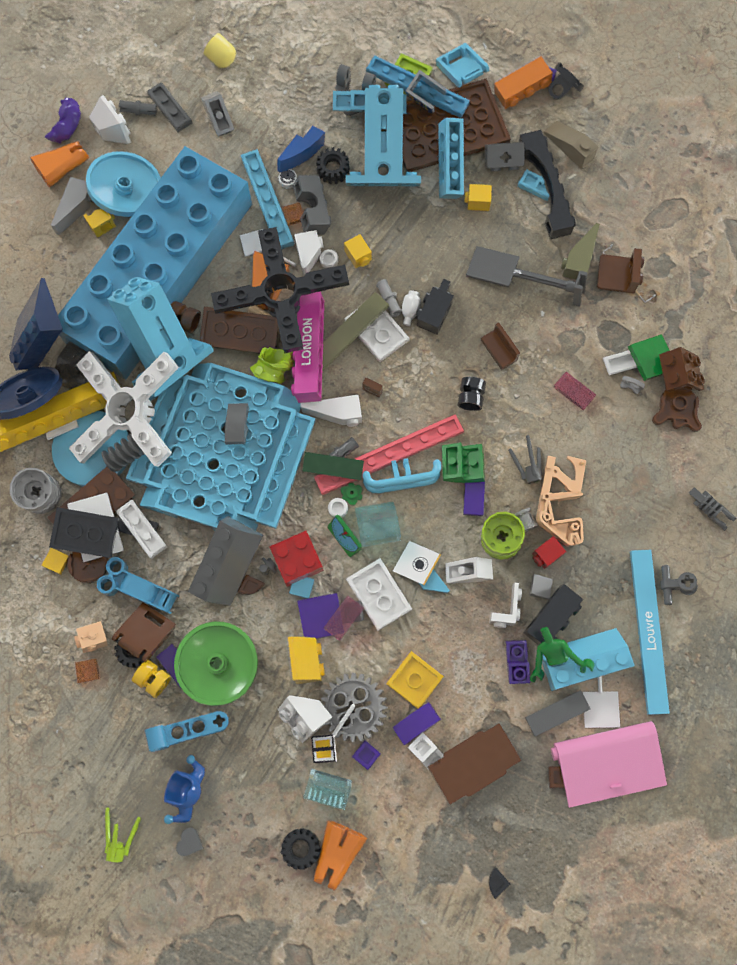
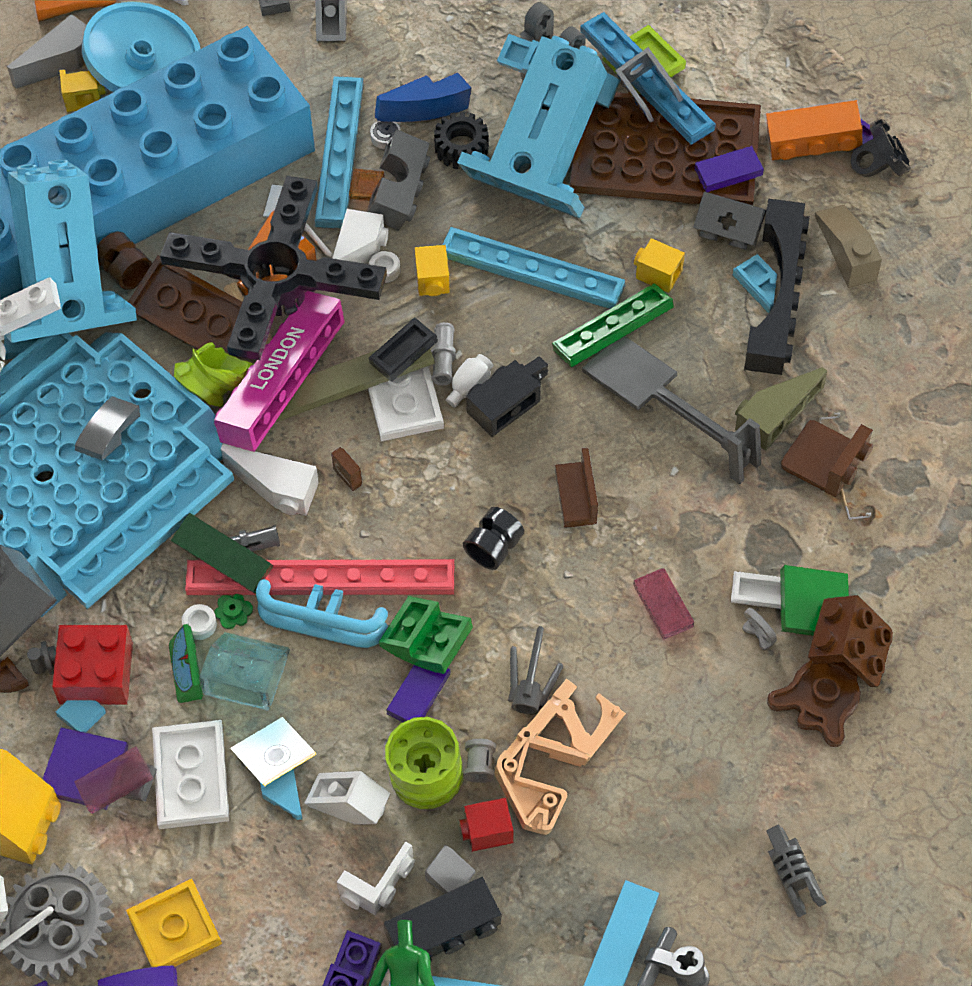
camera: 25 degrees right, 15 degrees down
(370, 306) = (403, 349): none -> black tile
(410, 226) = (533, 268): none -> medium azure tile
(451, 158) = (639, 191): medium azure brick -> none
(464, 69) = (733, 80): medium azure container -> none
(470, 243) = (612, 325): none -> green tile
(489, 125) = (729, 169): none -> dark purple tile

